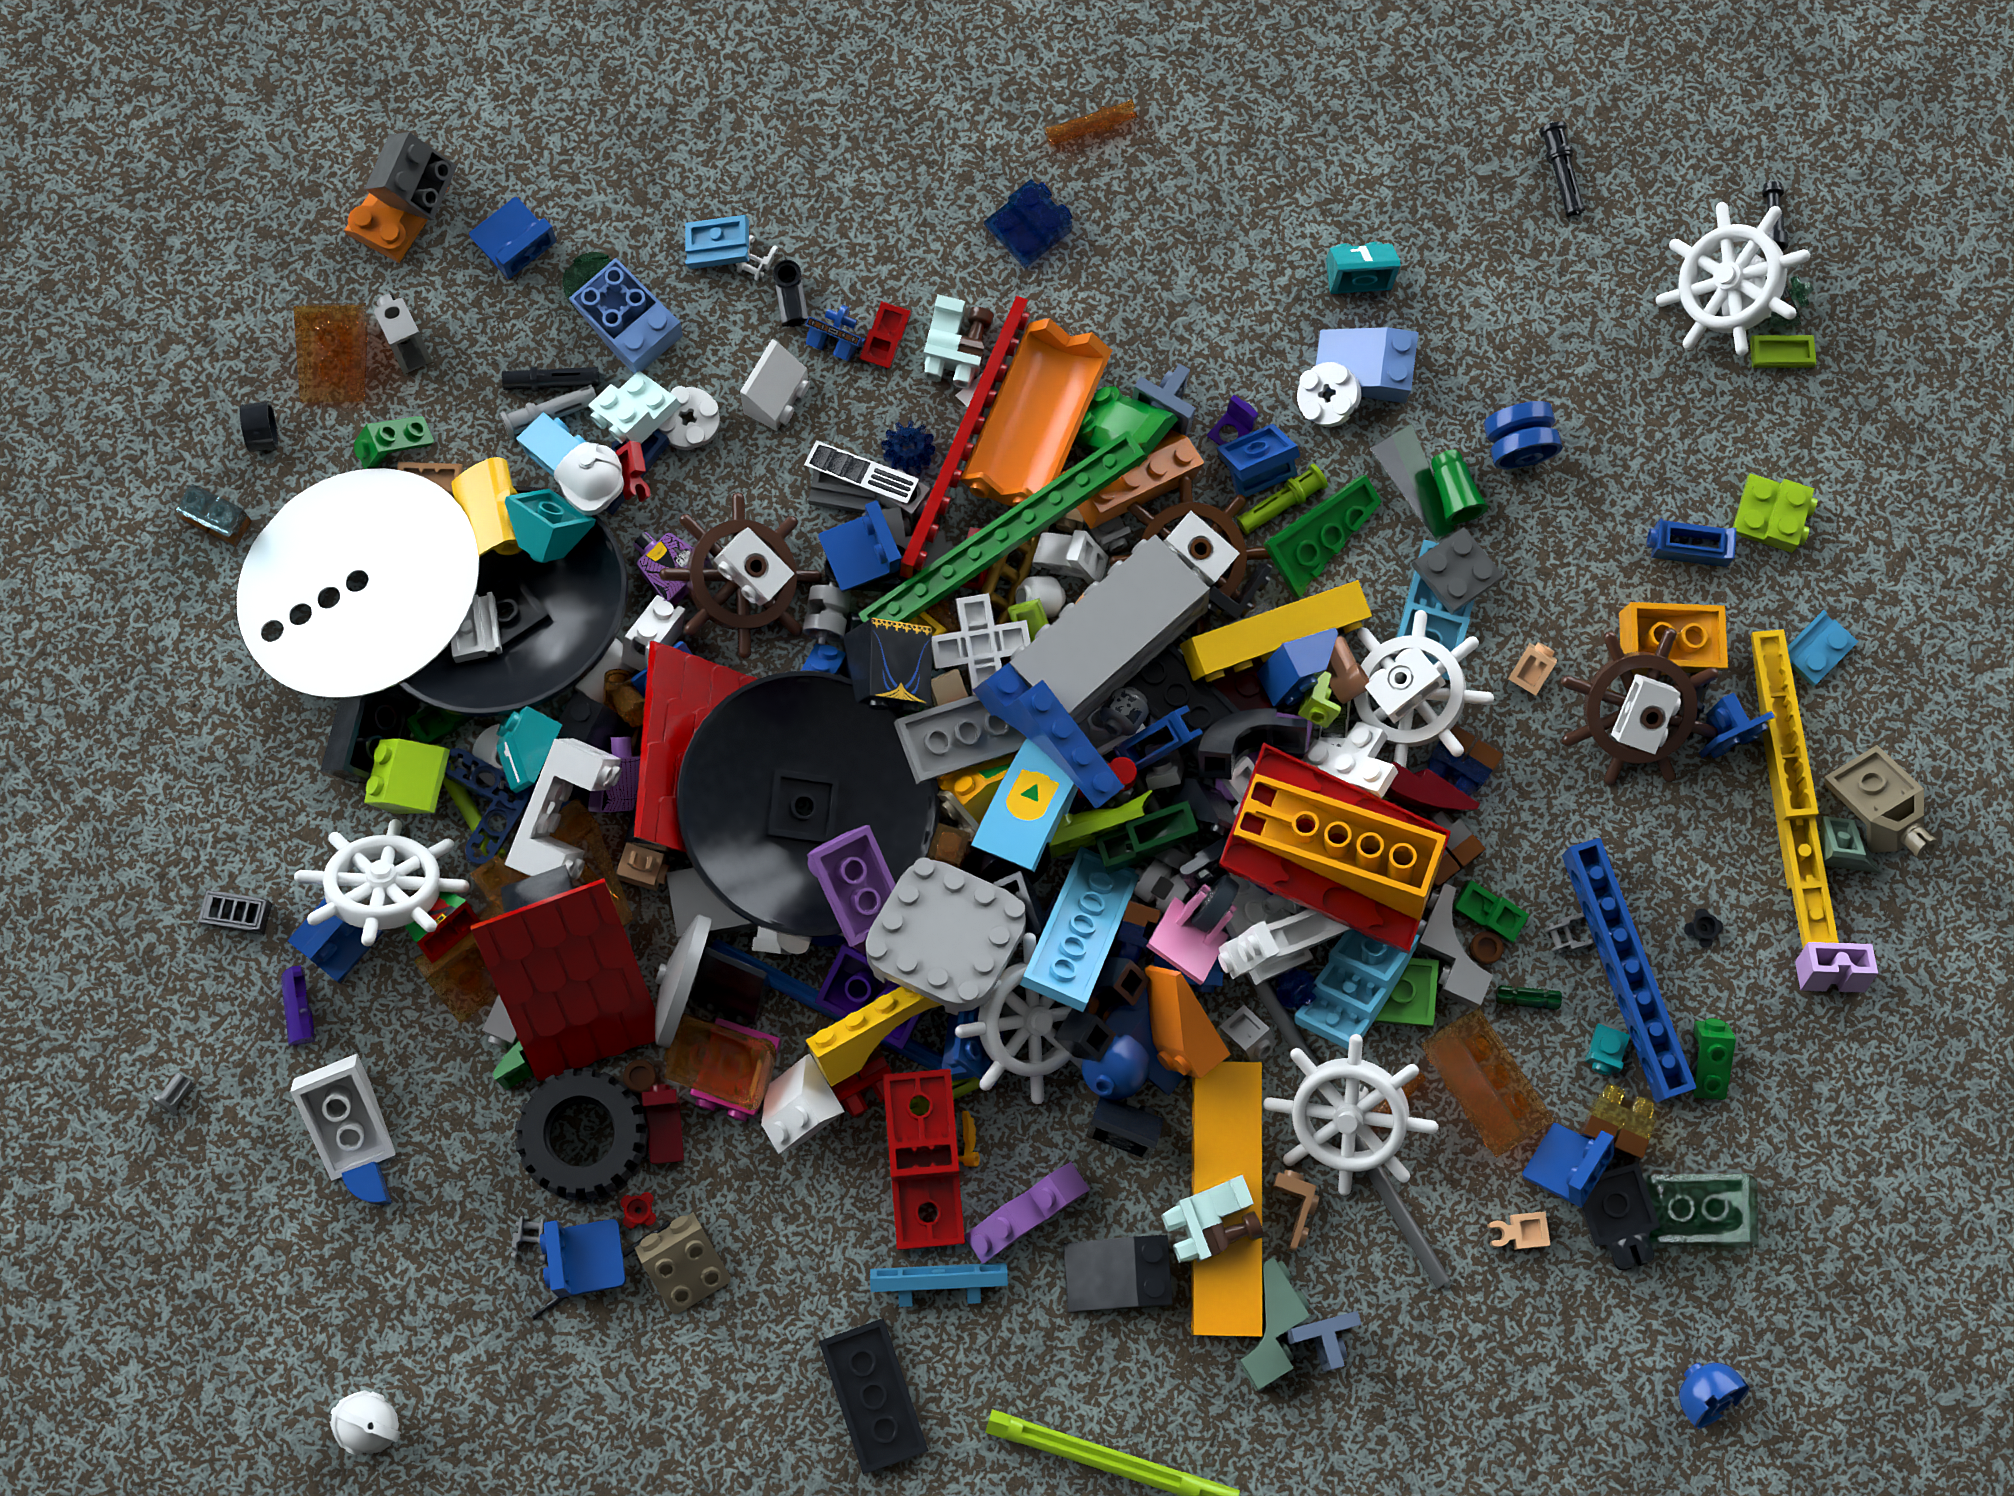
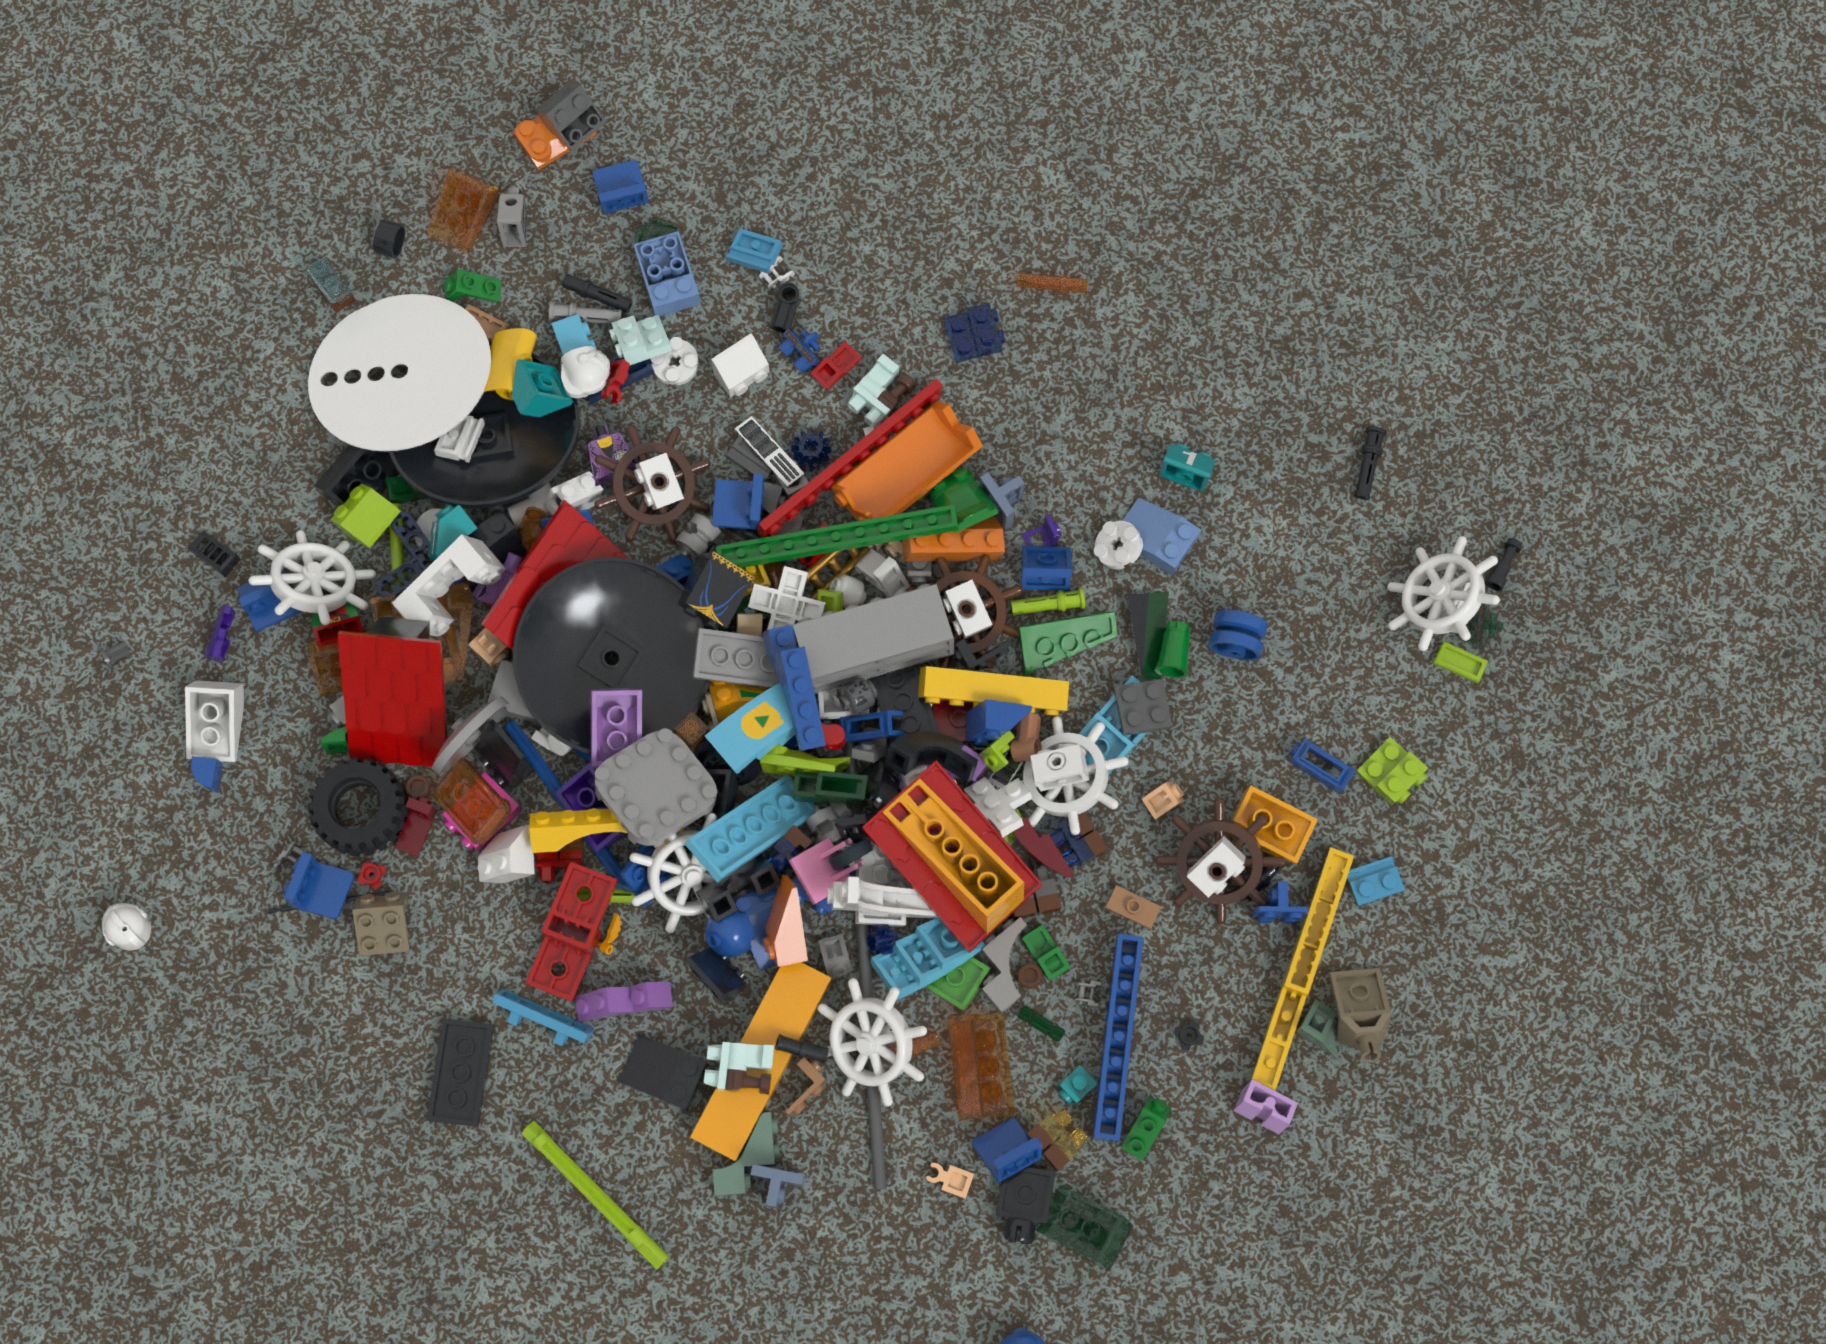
camera: 30 degrees right, 0 degrees up
(1272, 1163) = (801, 1048): none -> black pin
(1563, 810) = (1133, 907): none -> medium nougat plate

